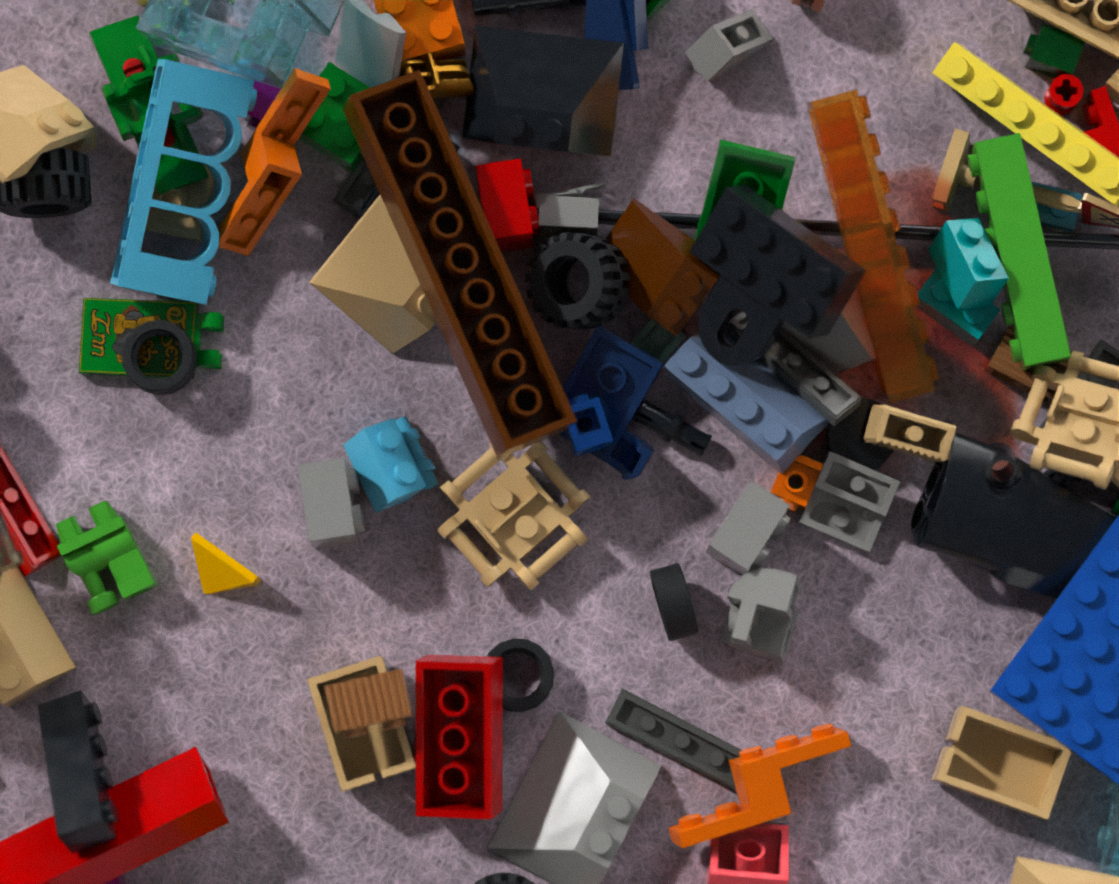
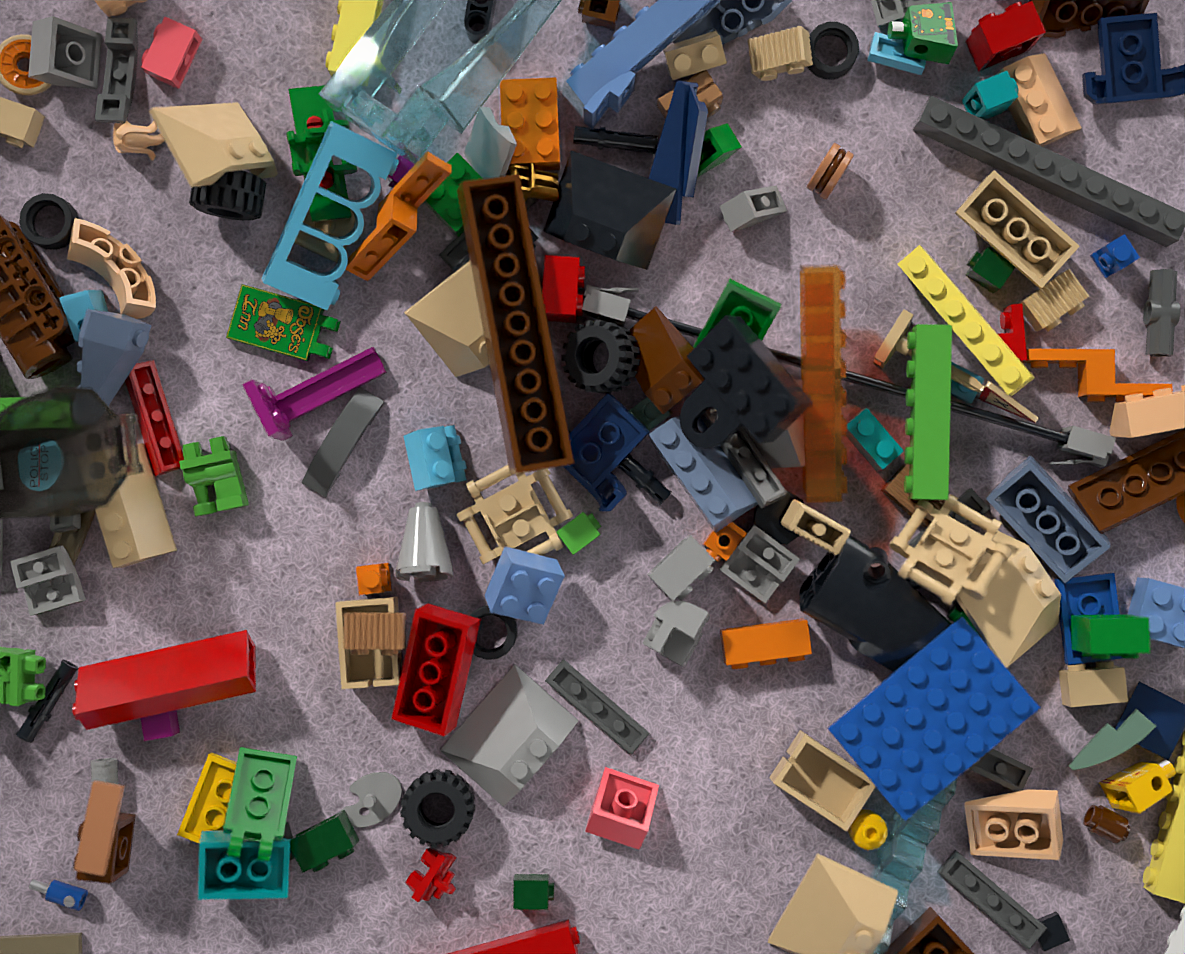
camera: 15 degrees right, 5 degrees up
(77, 771) = (154, 630): black brick -> none
(135, 341) = (265, 331): black tyre -> none
(214, 413) = (279, 410): none -> magenta bracket
(218, 570) = (293, 503): yellow slope -> none
(262, 473) = (341, 441): none -> dark grey slope
(330, 503) = (383, 477): light grey brick -> none
(347, 640) = (373, 578): none -> orange brick
(405, 583) = (424, 547): none -> light grey cone
(549, 600) = (524, 585): none -> medium blue brick
(599, 435) = (587, 474): blue brick -> none
(604, 516) = (579, 532): none -> bright green brick
(674, 602) = (614, 607): black tyre -> none
(758, 785) = (644, 755): orange bracket -> none
(883, 603) = (766, 643): none -> orange brick
(968, 263) = (889, 412): teal brick -> none
(1072, 88) = (996, 297): red bush -> none
(1076, 815) = (868, 830): none -> yellow head

